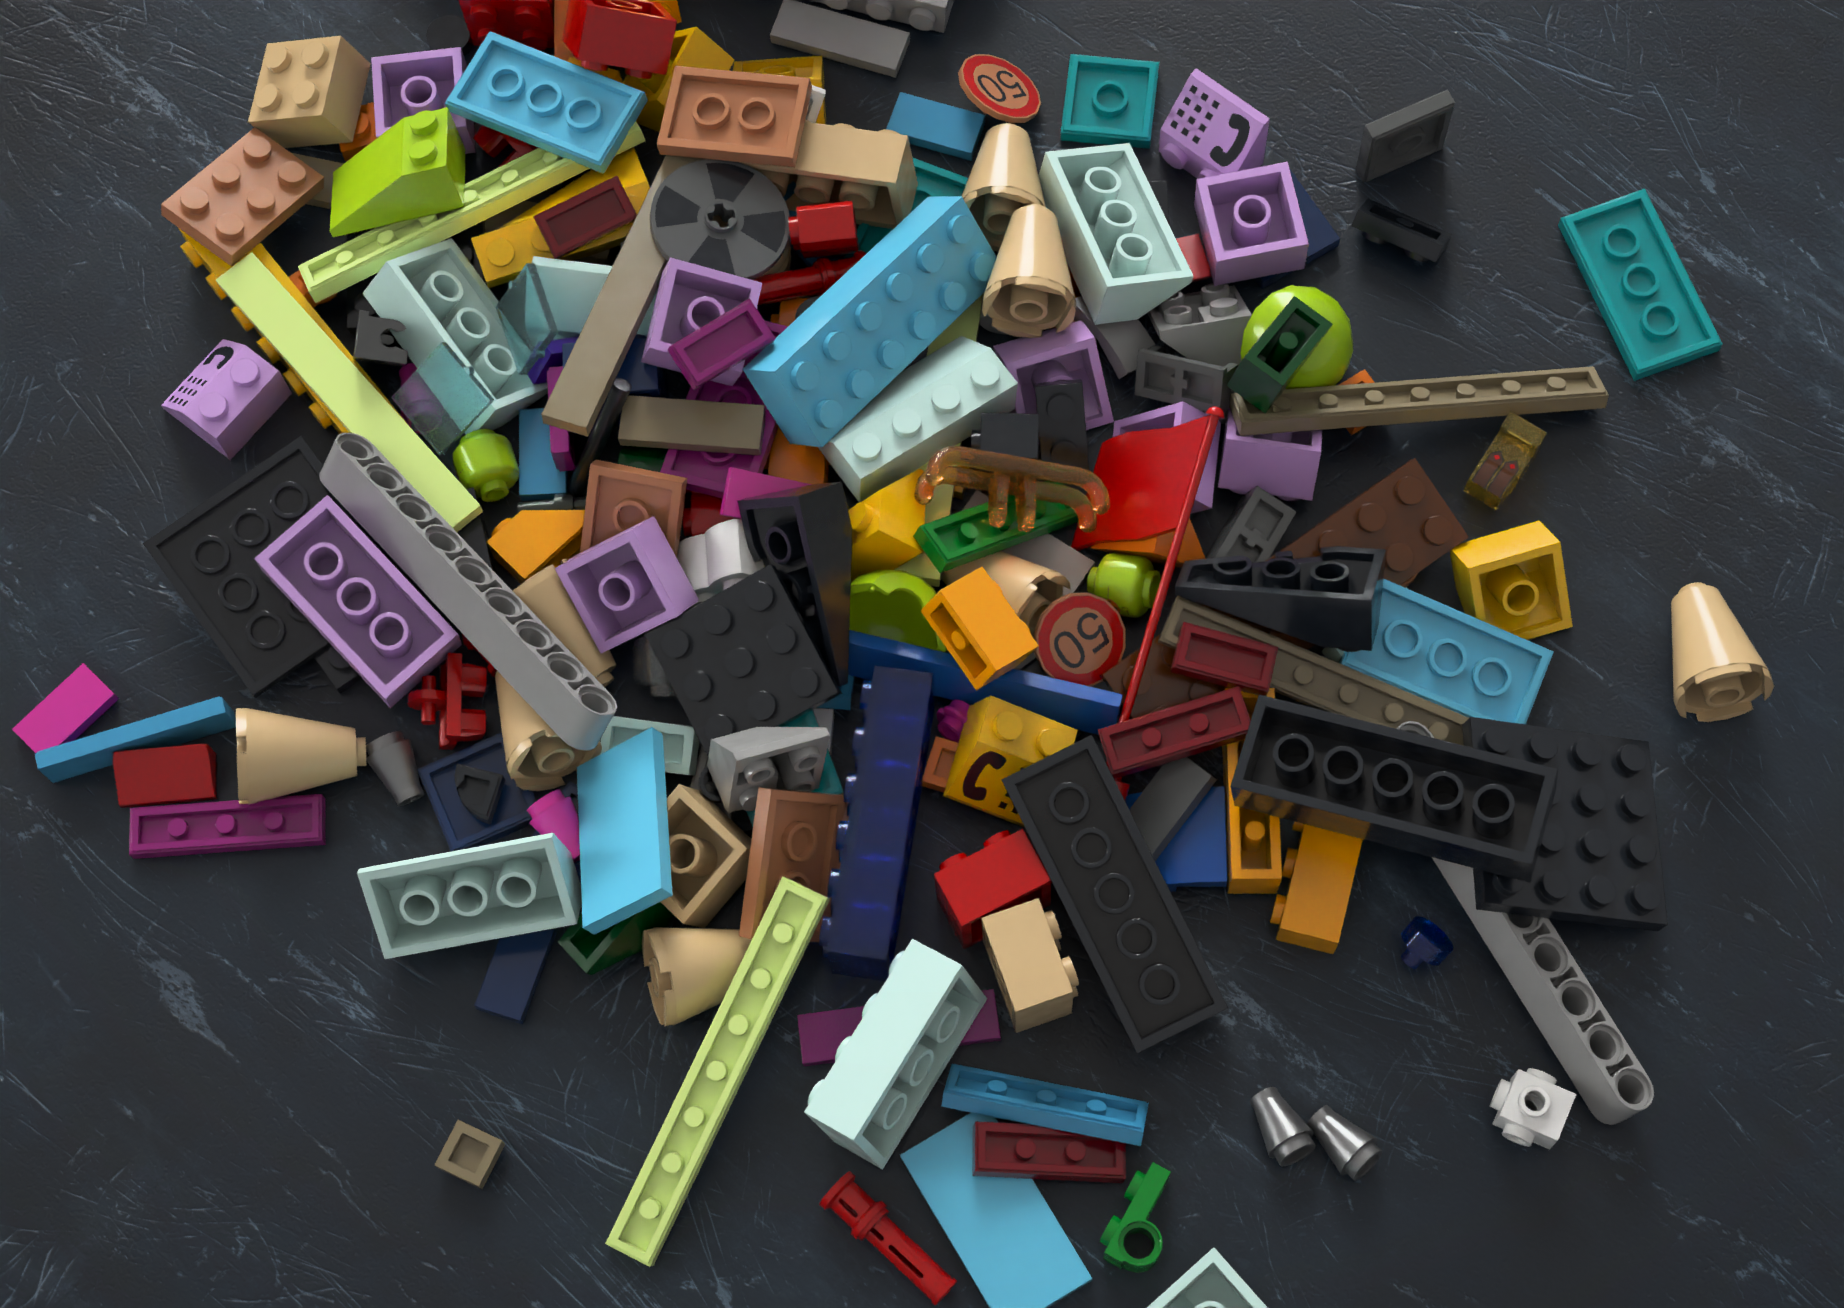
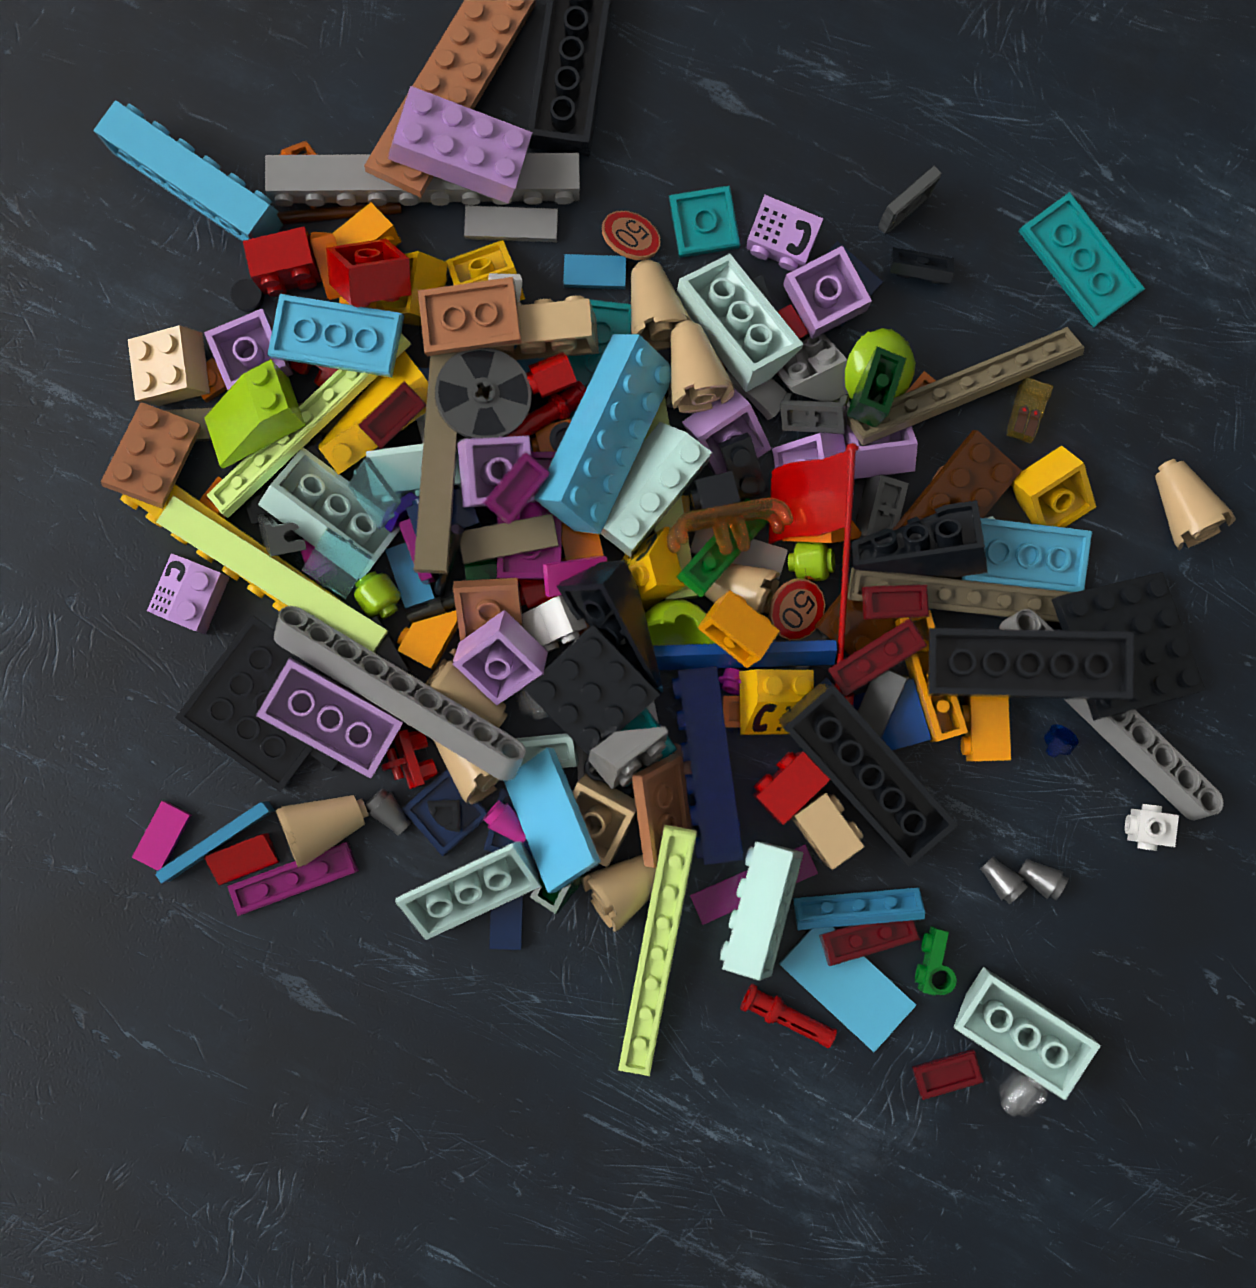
camera: 20 degrees left, 15 degrees up
(470, 1154) = (518, 1041): dark tan plate -> none

